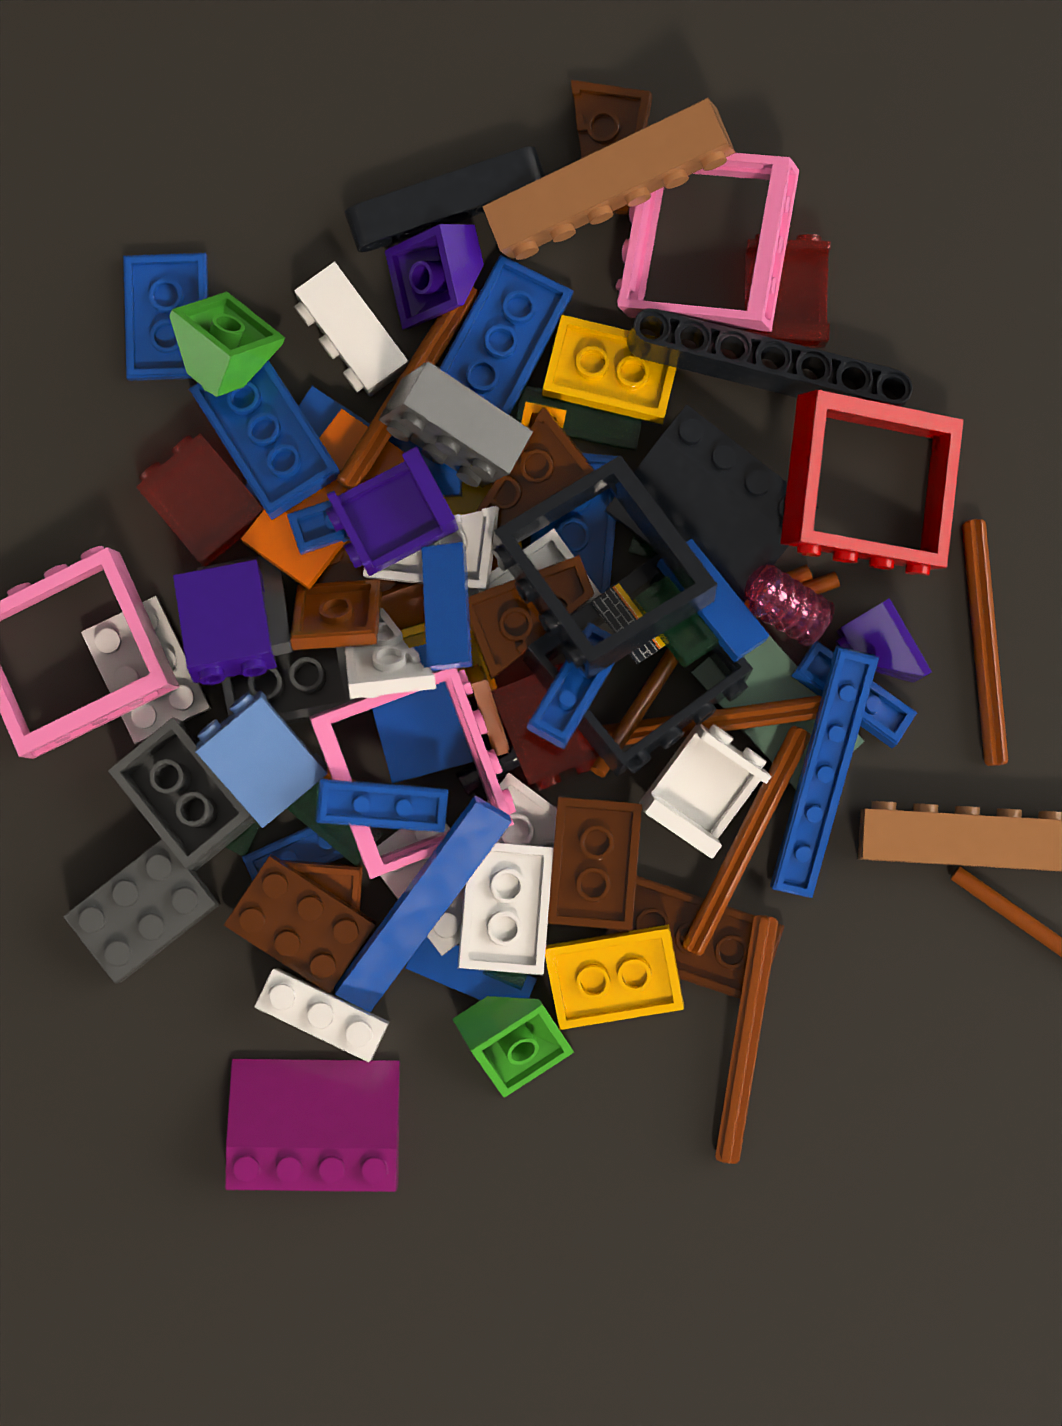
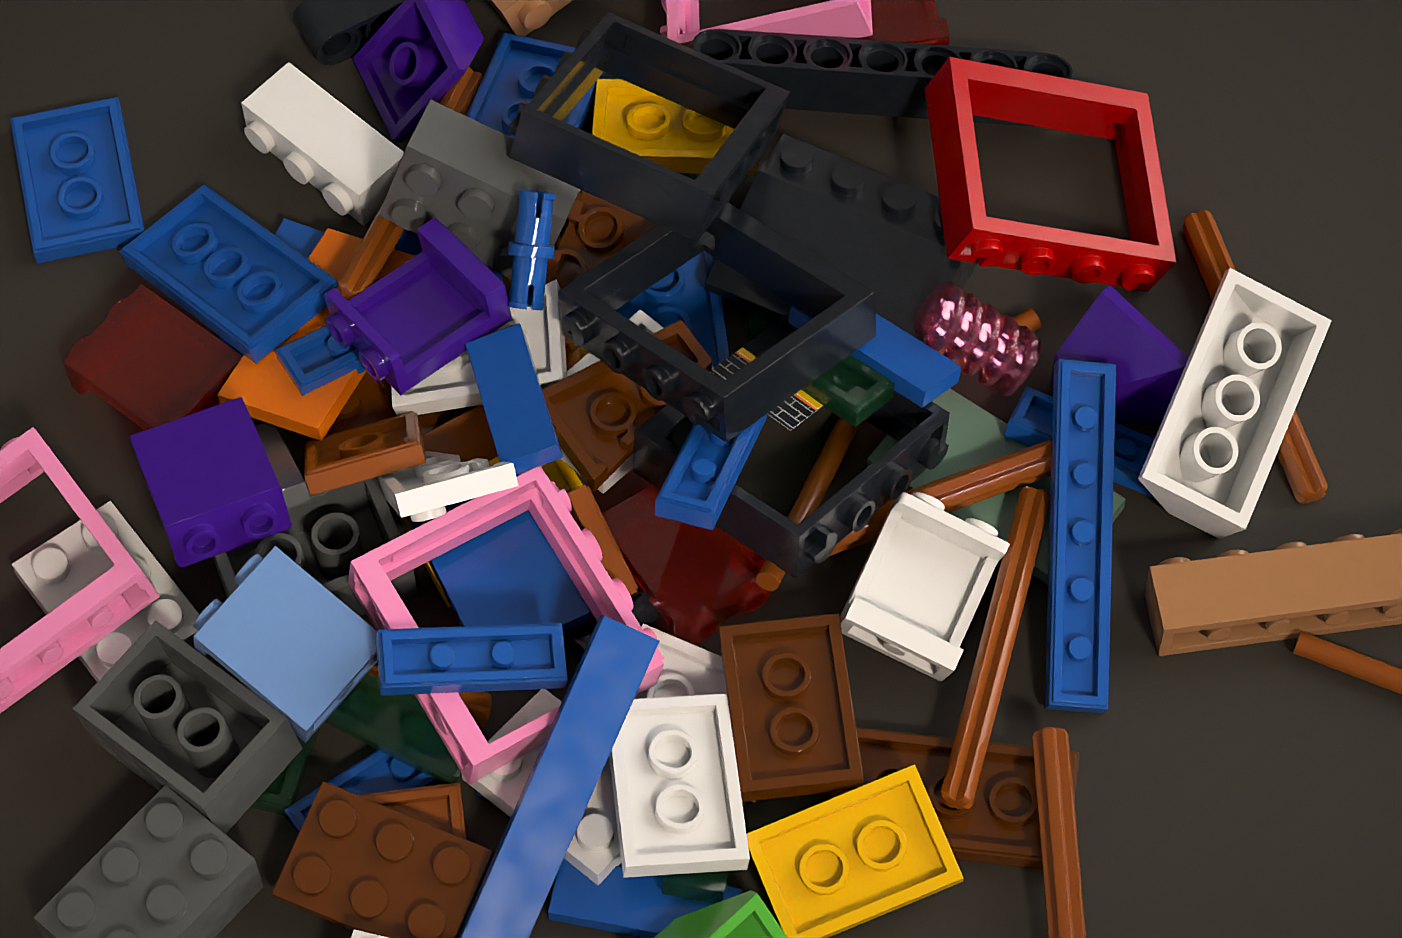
camera: 10 degrees left, 25 degrees down
(223, 342) = (156, 182): bright green slope -> none
(480, 492) = (531, 249): none -> blue pin
(625, 348) = (623, 177): none -> black window
(956, 704) = (1232, 405): none -> white slope

